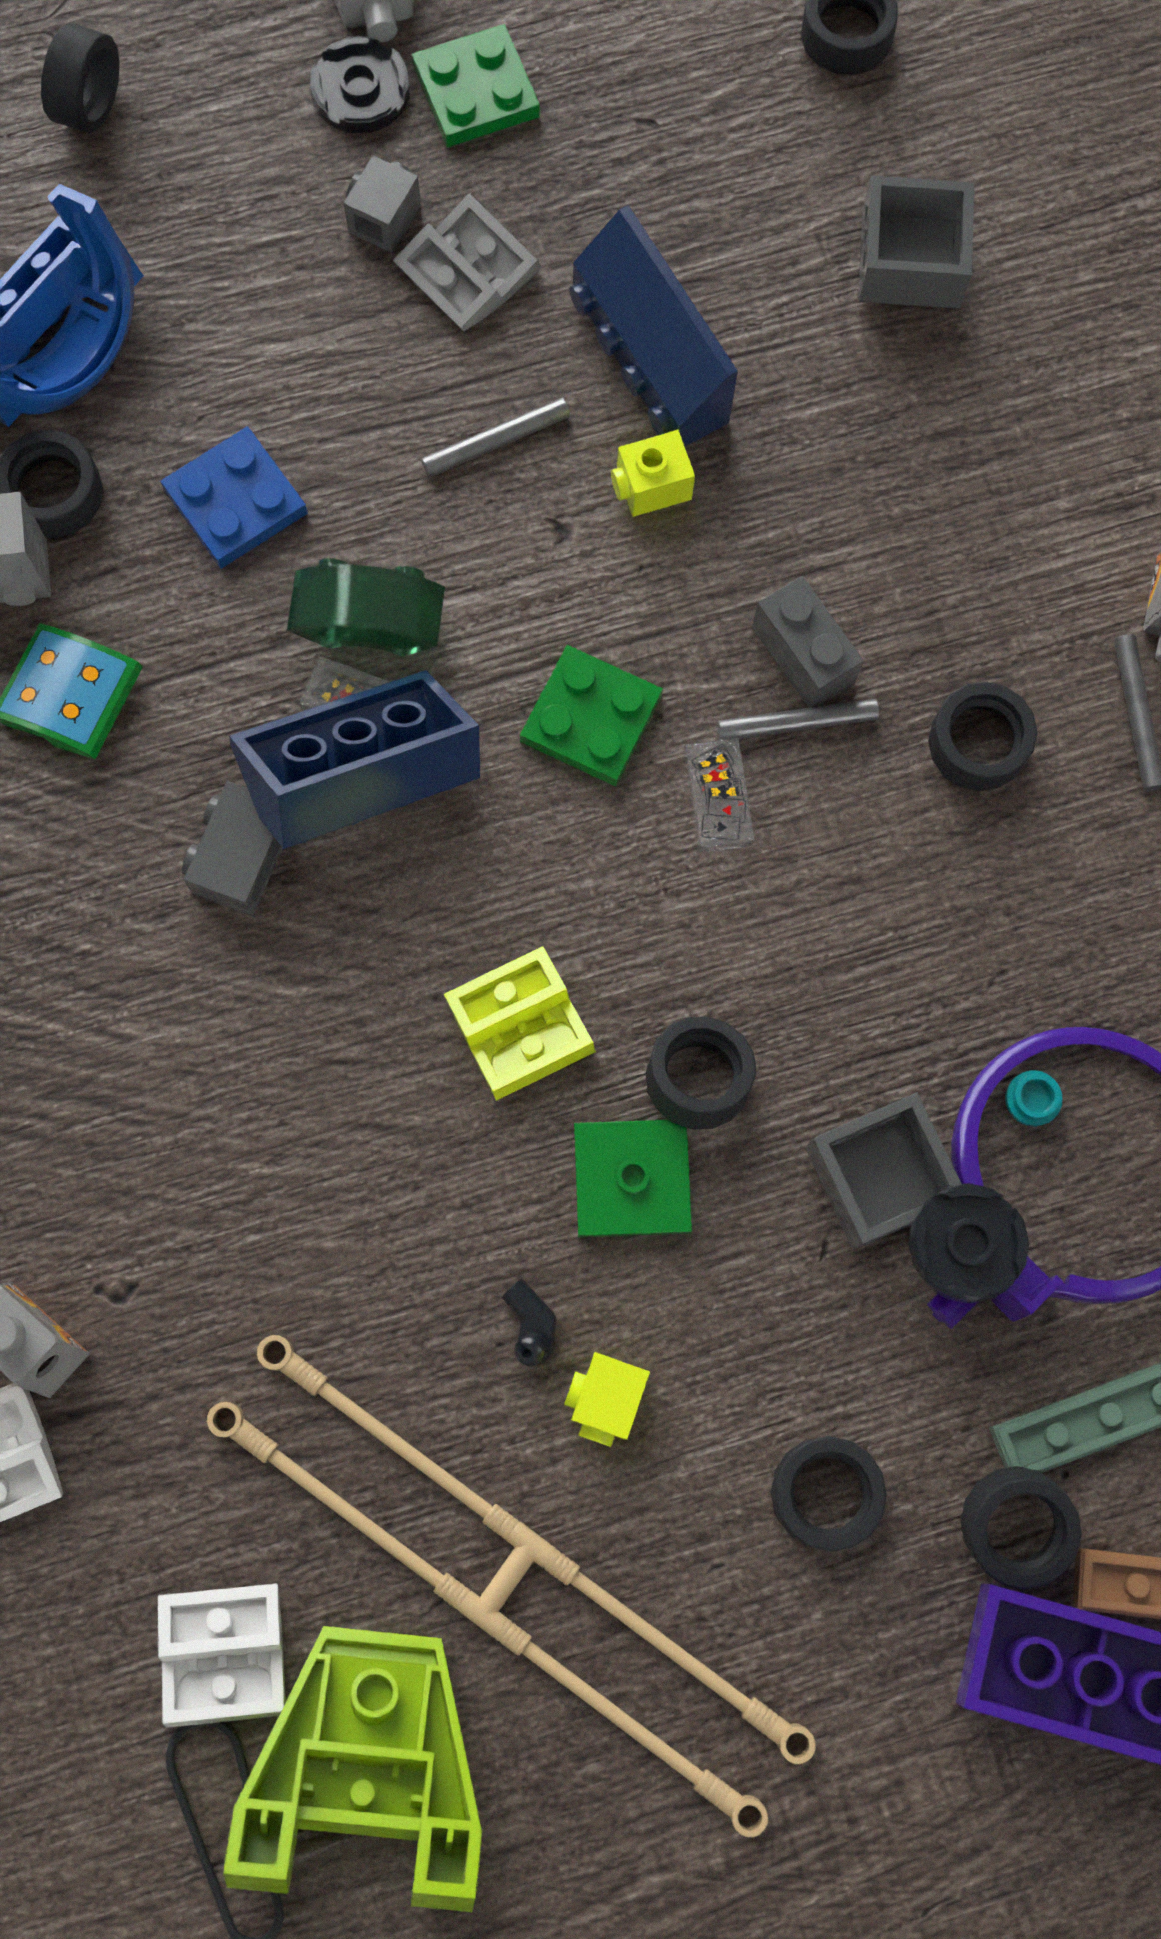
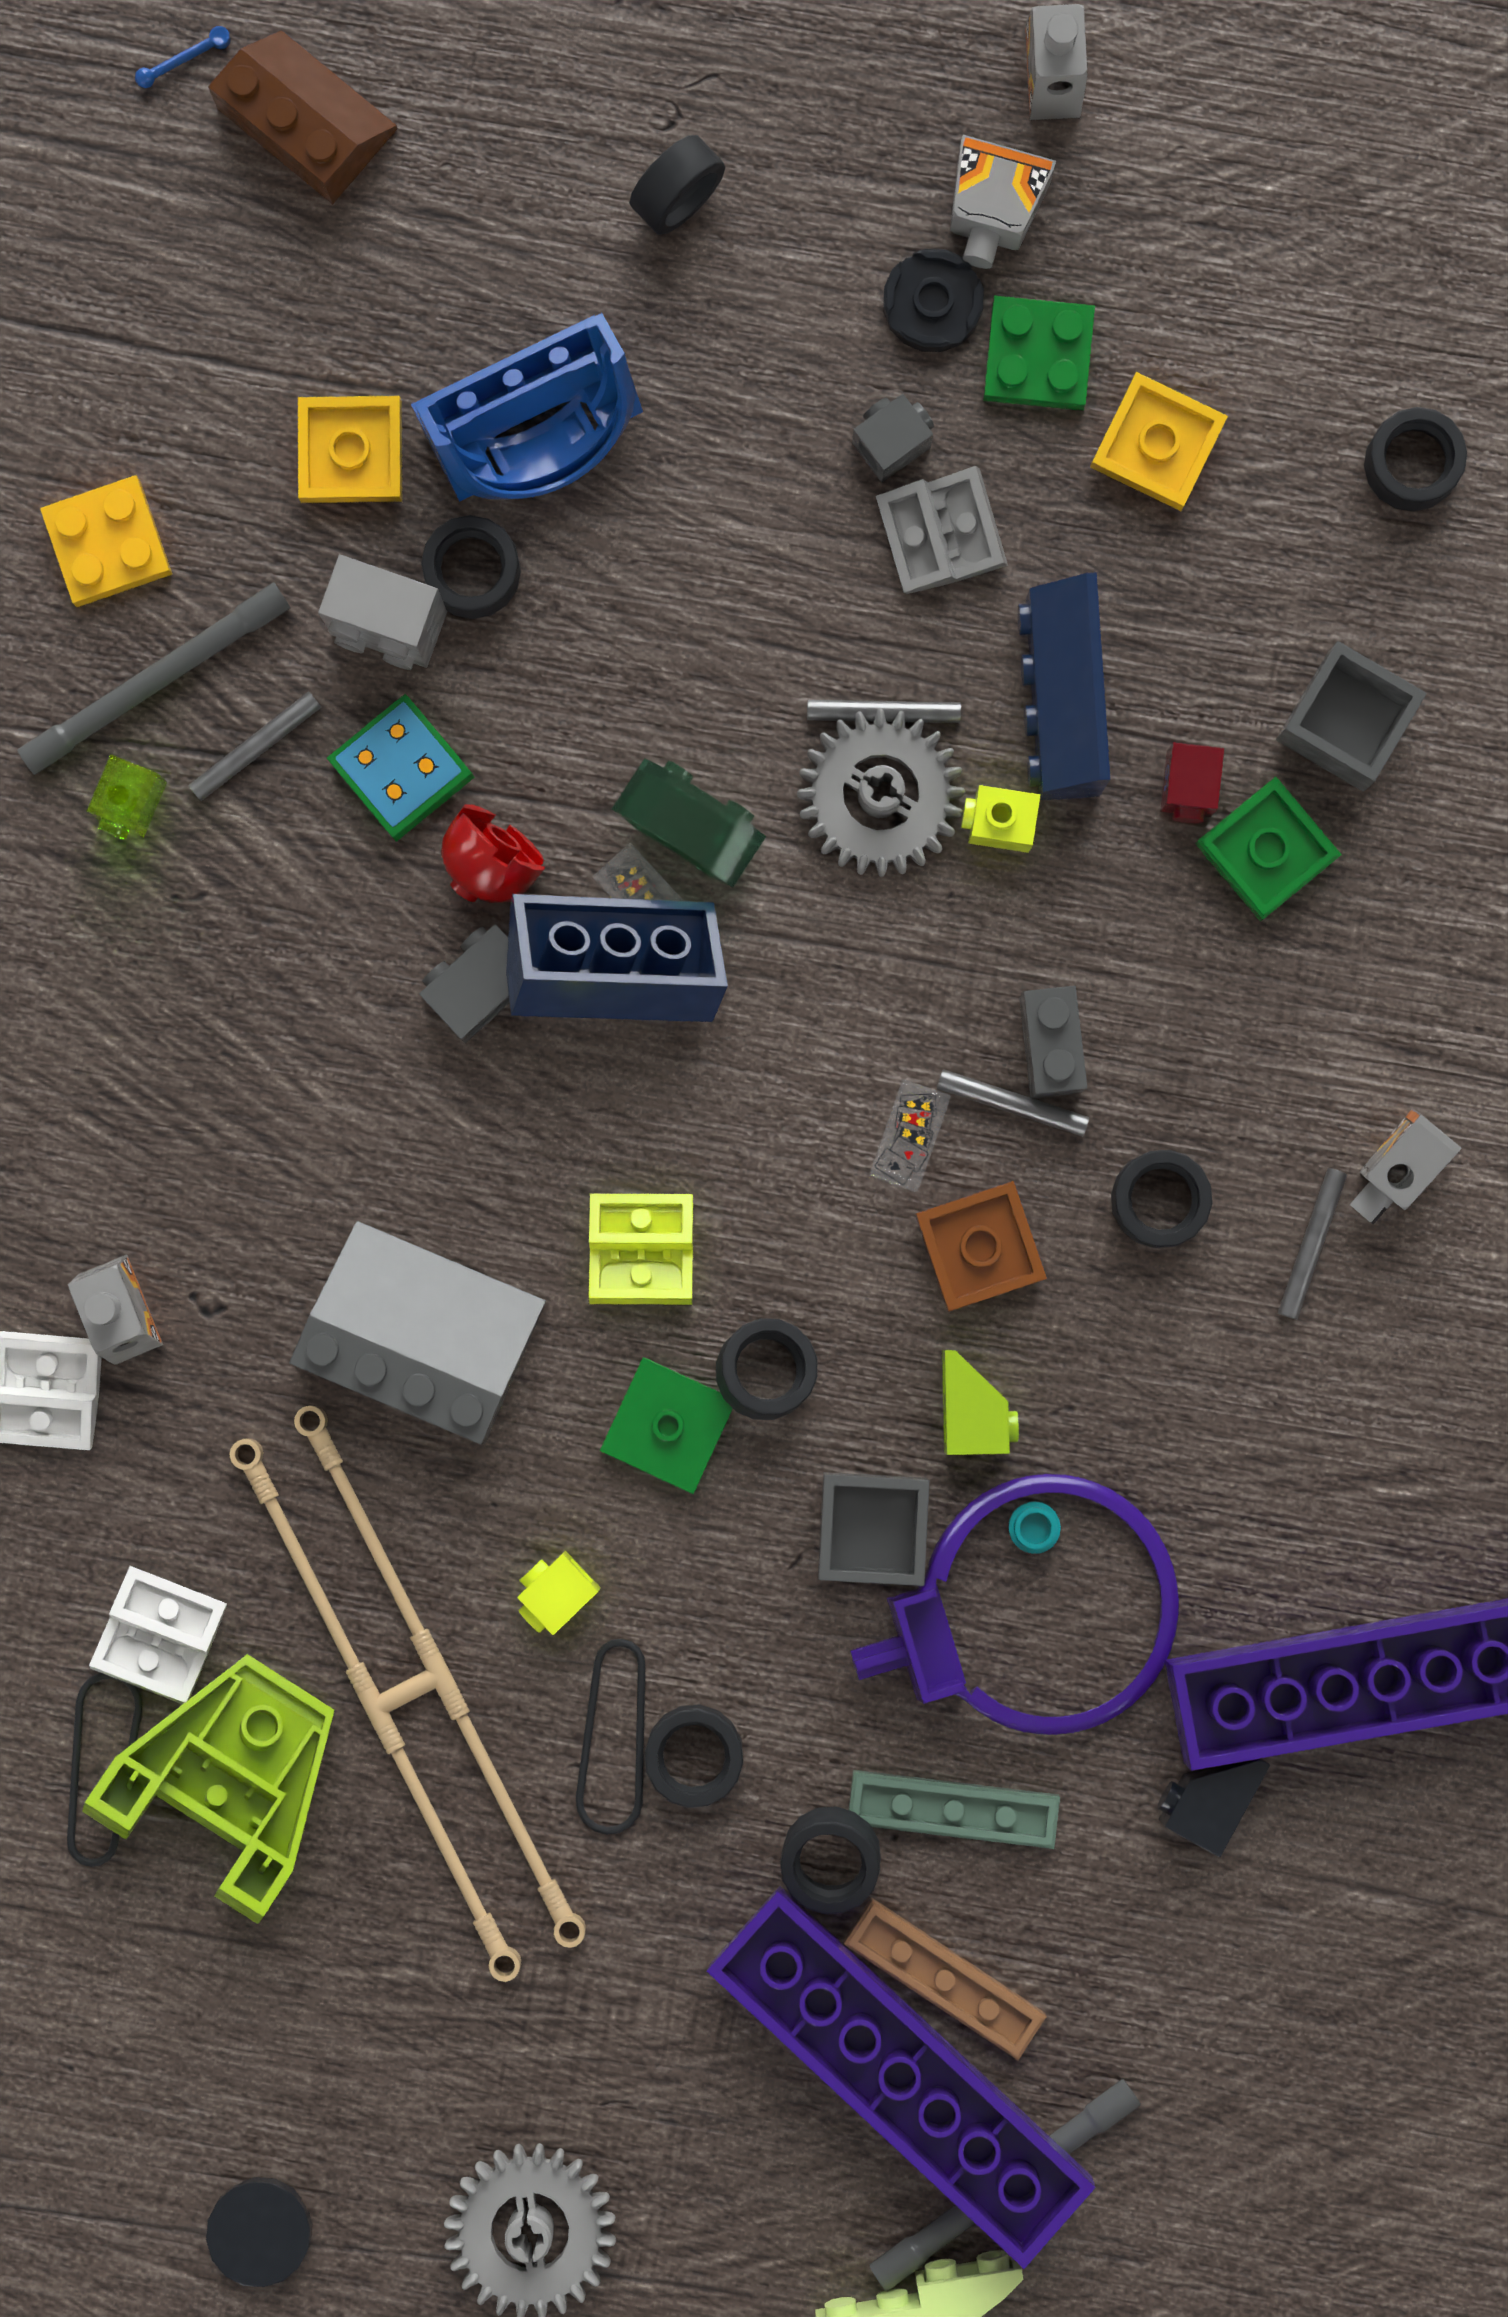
camera: 30 degrees right, 10 degrees up
(188, 729) = (487, 859): none -> red cylinder
(234, 497) = (627, 655): blue plate -> none
(340, 1211) = (418, 1332): none -> slope
(529, 469) = (837, 768): none -> light grey gear
(536, 1326) = (529, 1506): black arm -> none
(591, 715) = (837, 1010): green plate -> none
(620, 105) = (1158, 441): none -> yellow plate
(799, 1585) = (639, 1738): none -> black piece
(805, 363) = (1192, 781): none -> dark red brick
(840, 860) = (980, 1246): none -> dark orange plate
(904, 391) = (1268, 848): none -> green plate
(916, 1013) = (974, 1411): none -> lime slope
(968, 1243) = (902, 1623): black tile -> none

